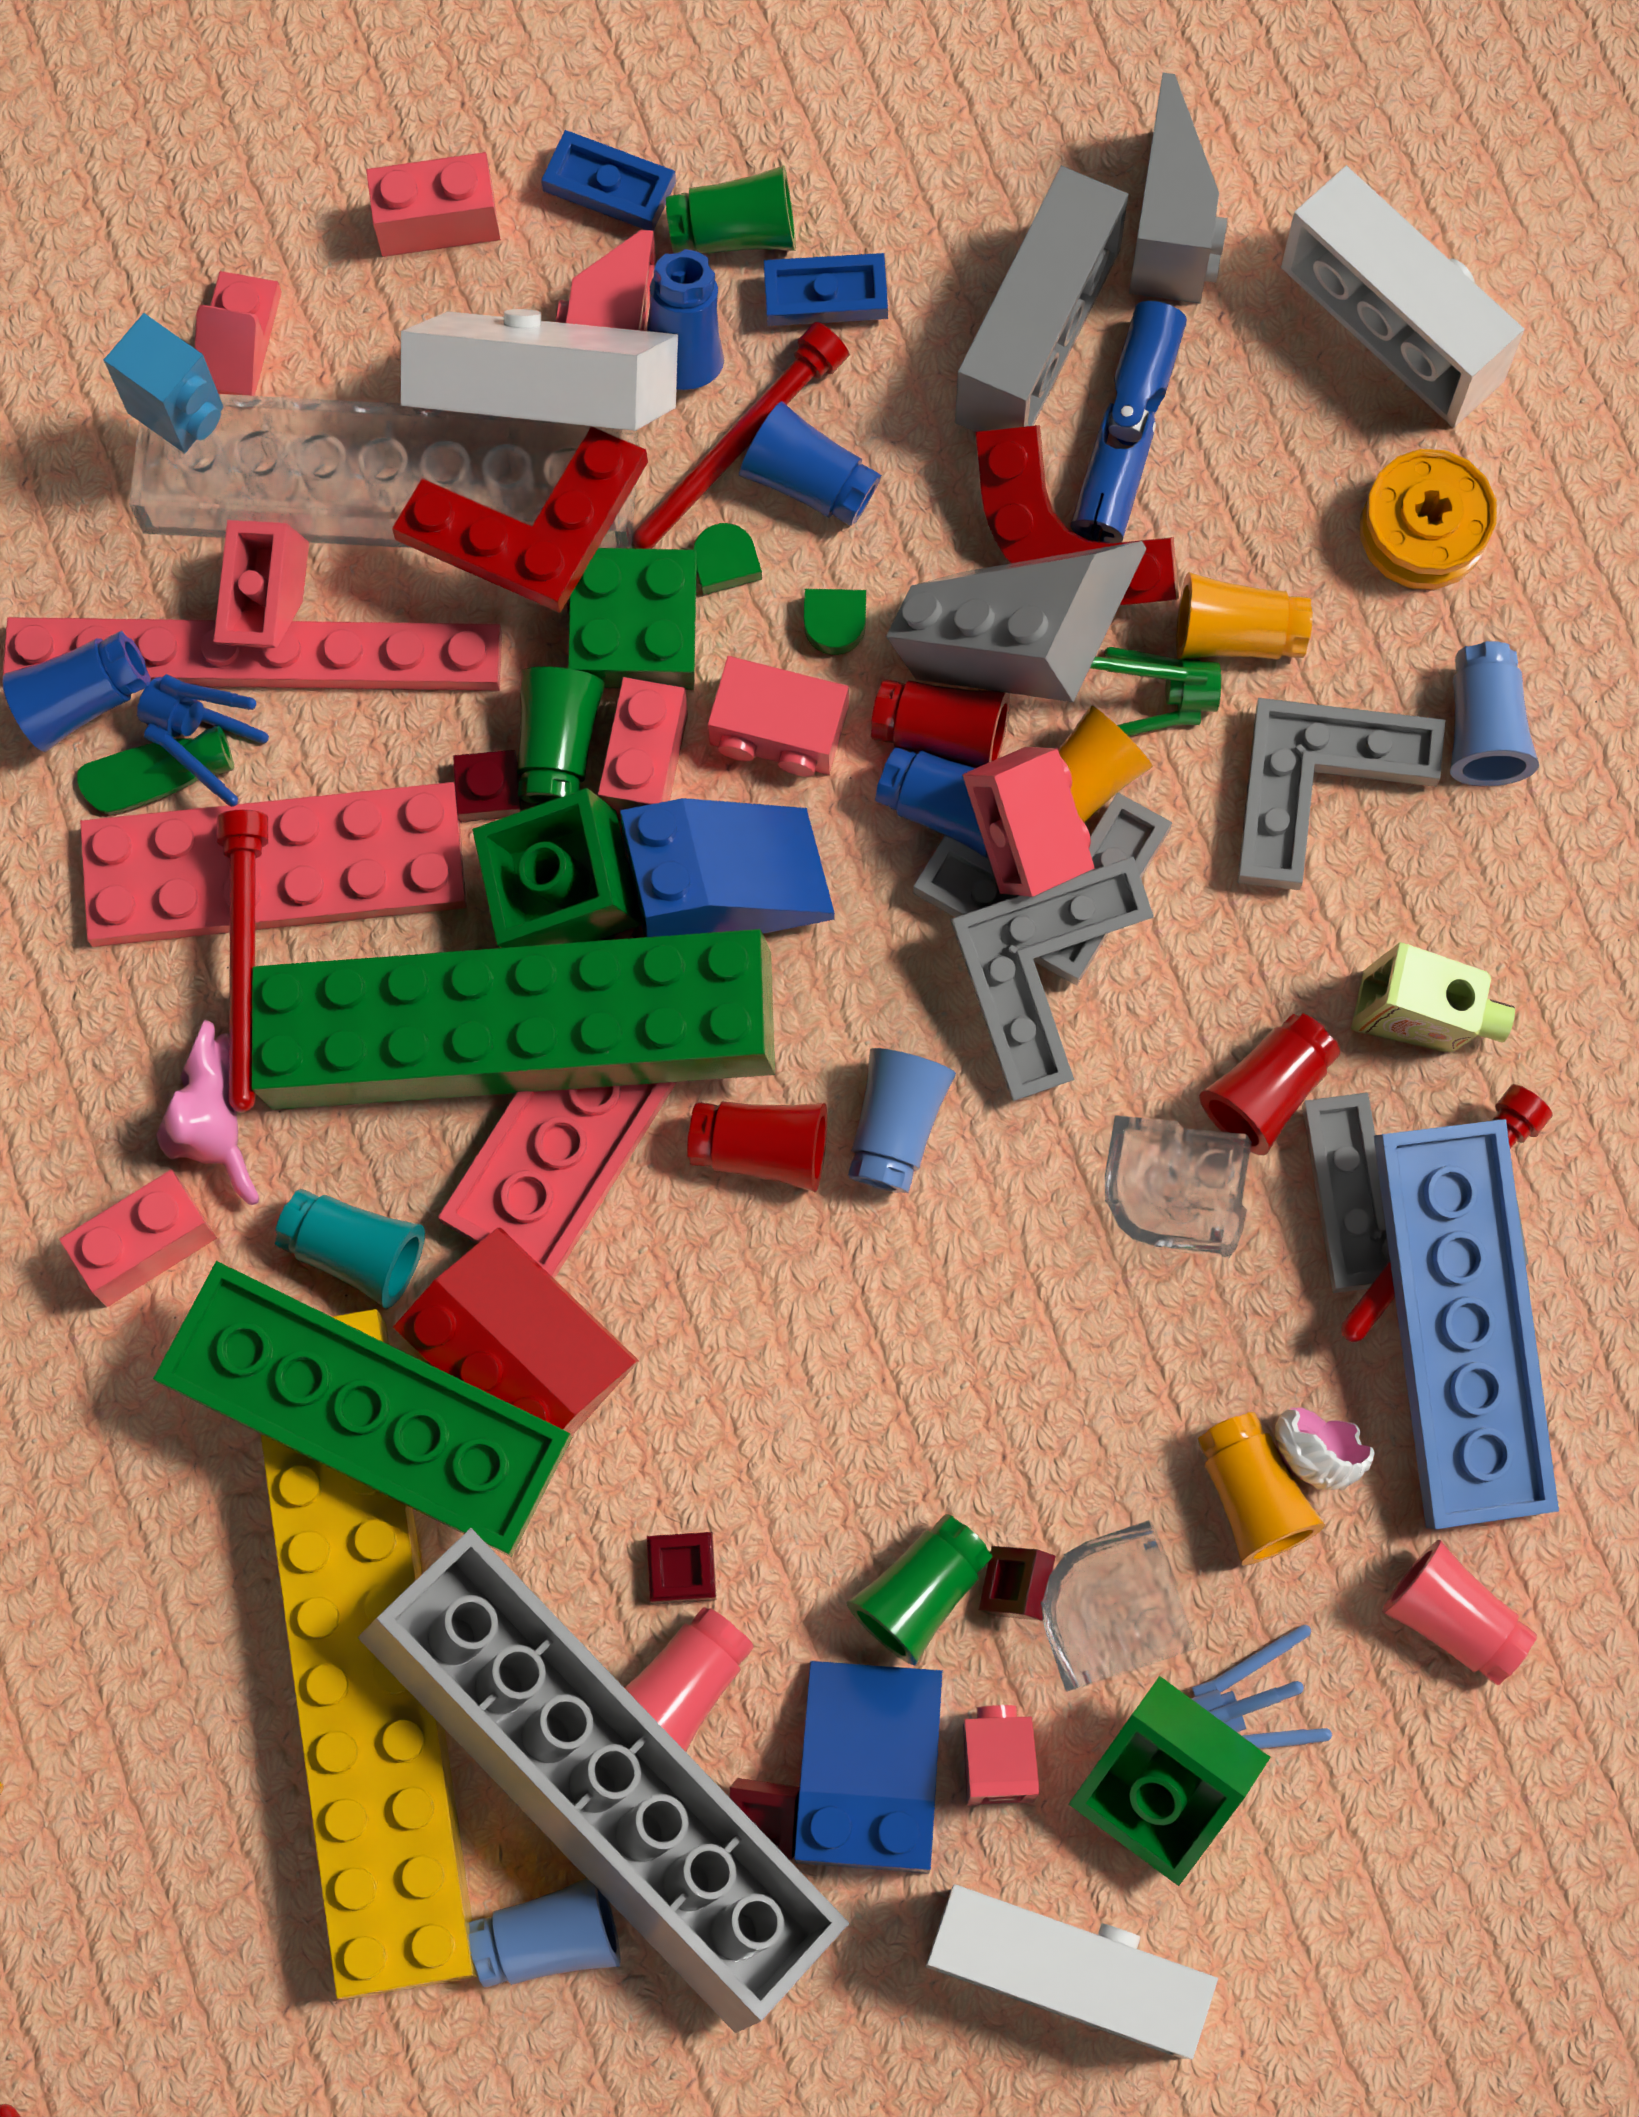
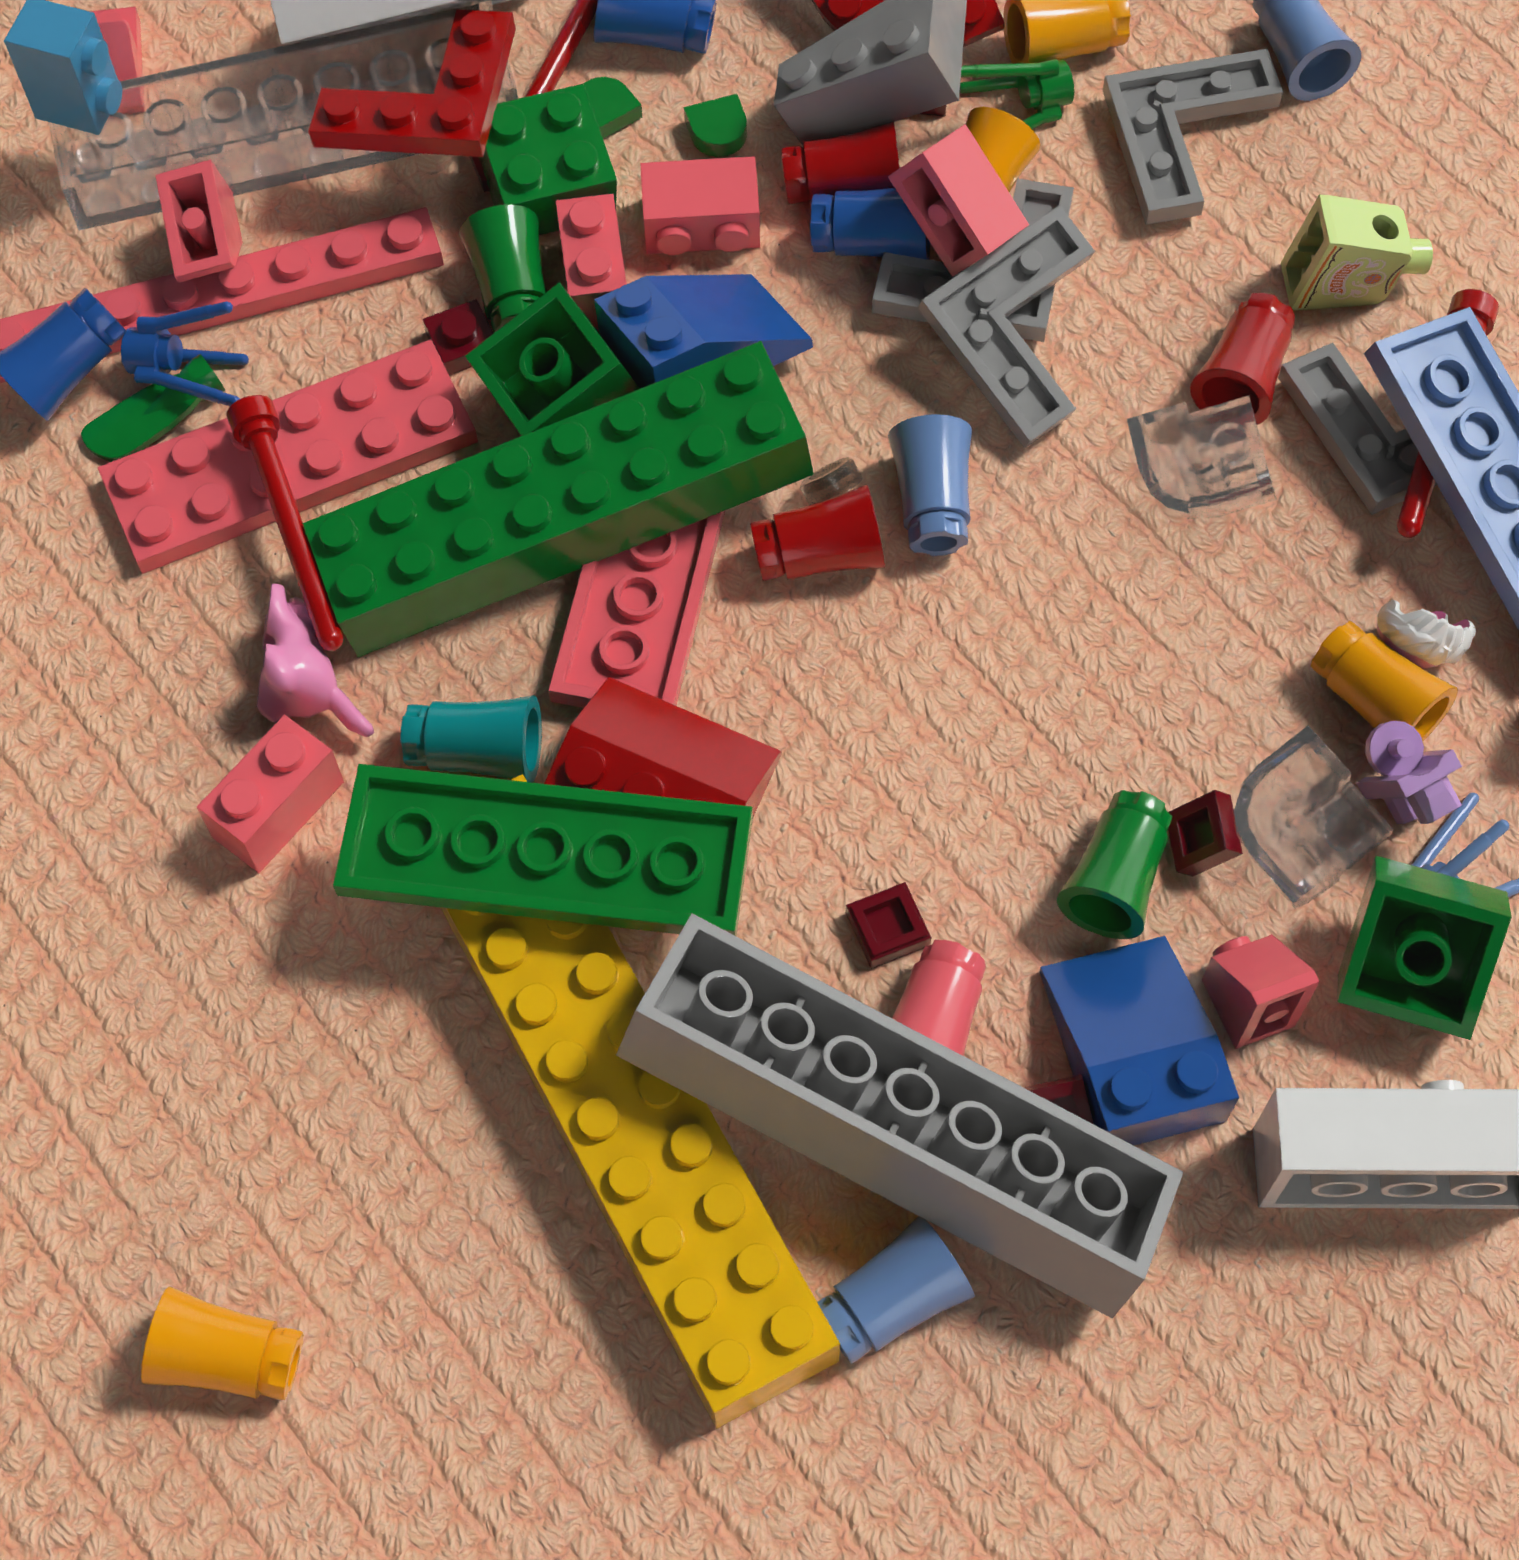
camera: 20 degrees left, 10 degrees down
(797, 1080) = (831, 481): none -> clear smoke tile
(1235, 1597) = (1412, 780): none -> lavender hips

